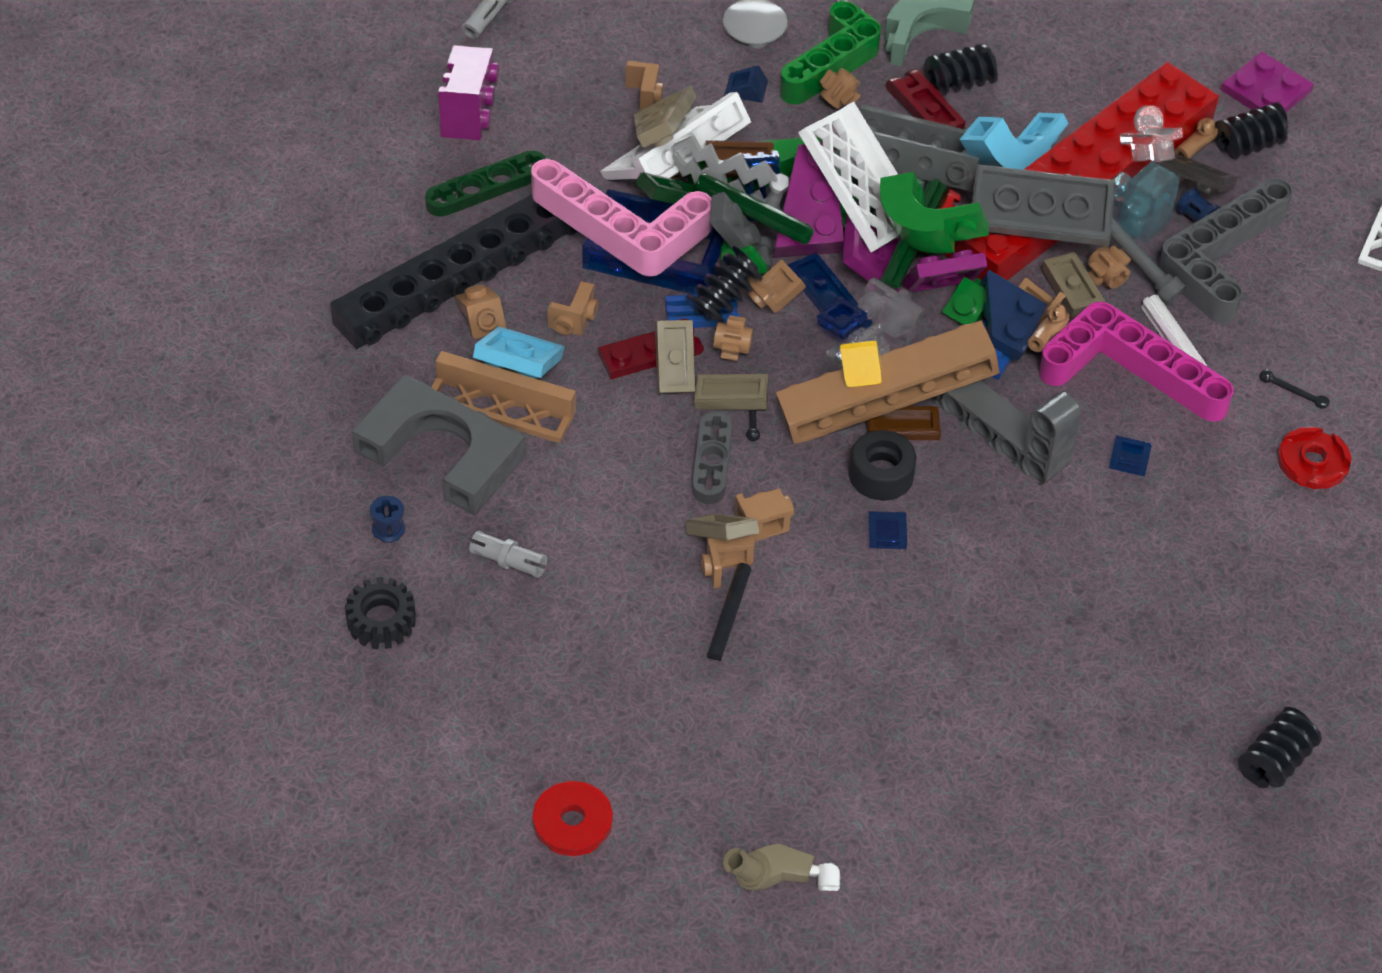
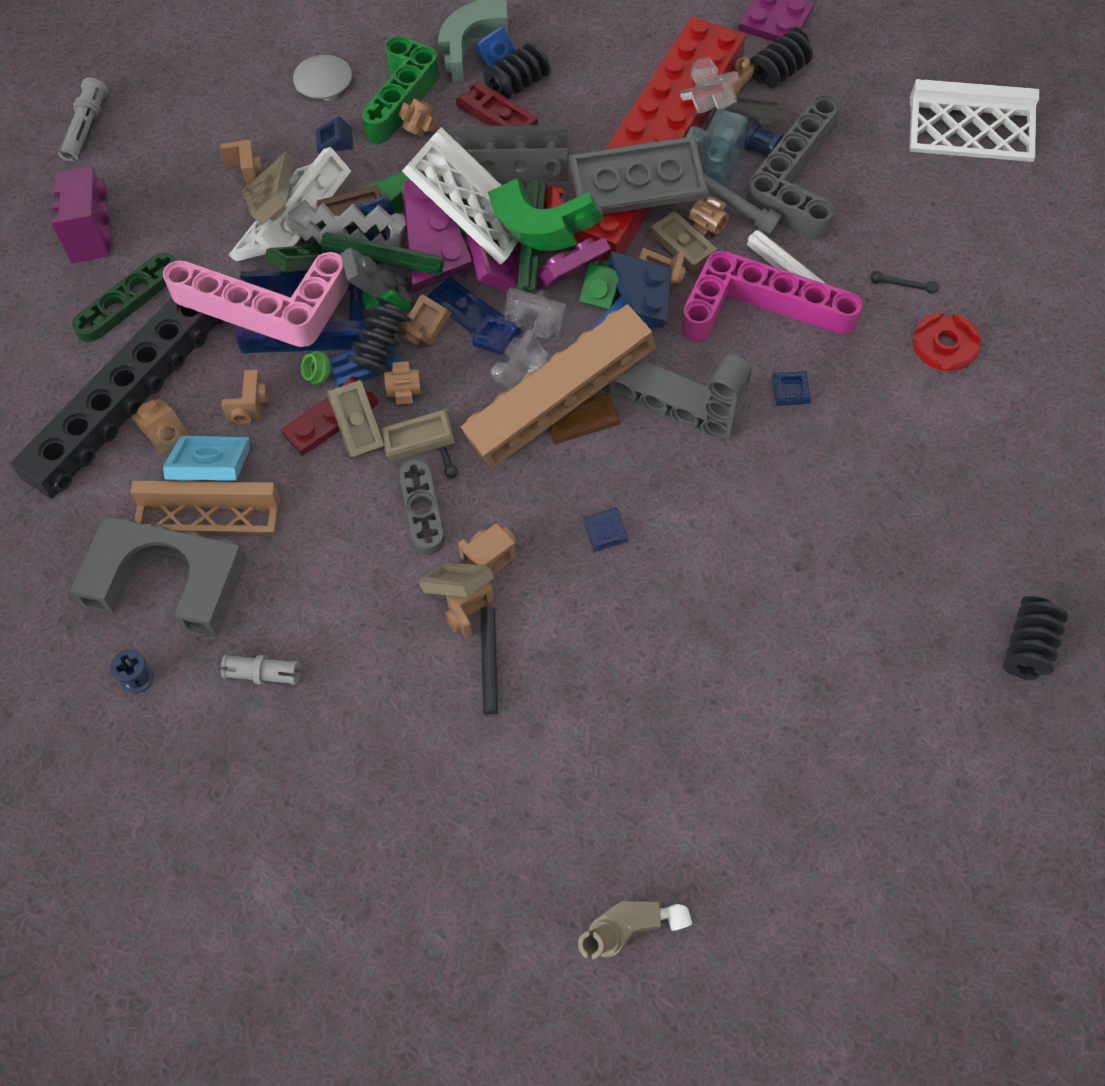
camera: 15 degrees left, 10 degrees up
(376, 595) = (140, 759): black tyre -> none
(572, 839) = (418, 960): red tile -> none
(652, 300) = (315, 367): none -> bright green plate
(861, 363) = (532, 379): yellow slope -> none
(879, 482) = (584, 485): black tyre -> none
(945, 38) = (494, 47): none -> blue bracket
(998, 147) = (573, 130): medium azure arch -> none
(1049, 327) = (681, 288): medium nougat arm -> none

